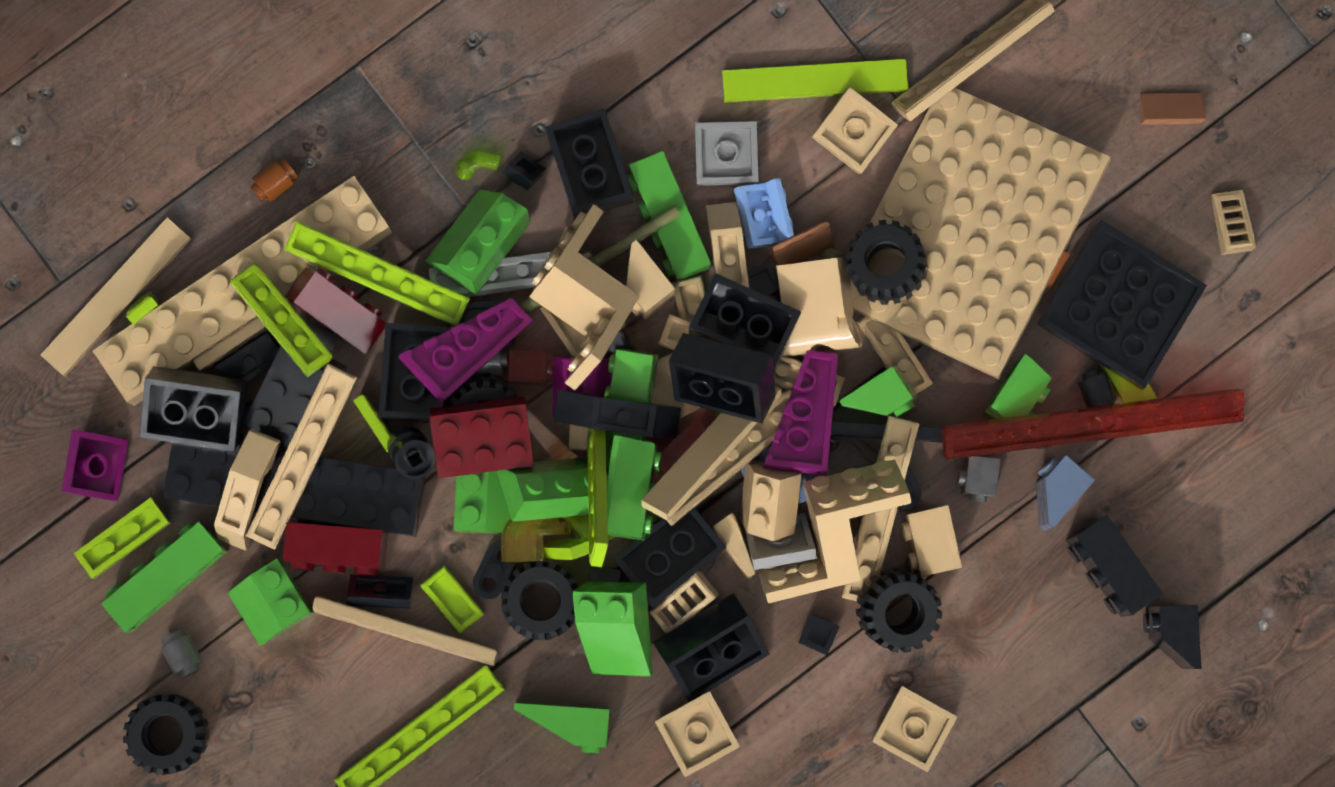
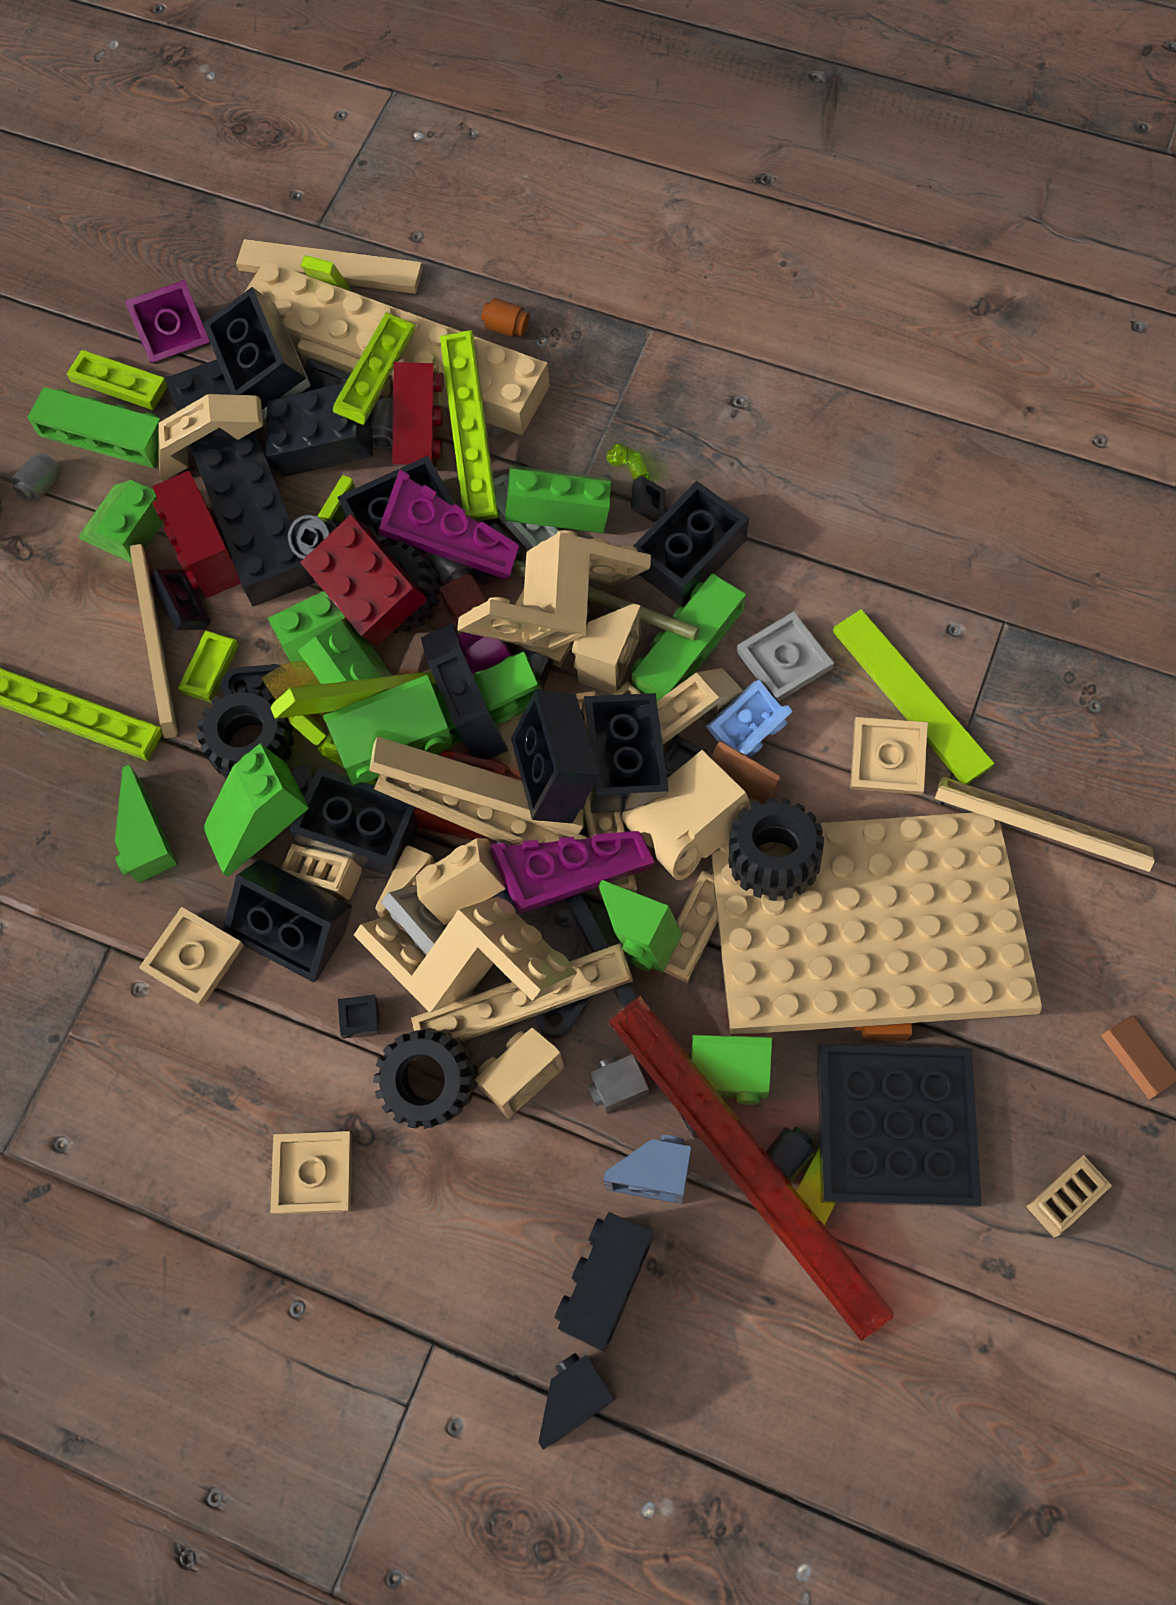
camera: 70 degrees right, 15 degrees down
(301, 456) = (263, 450): tan tile -> none

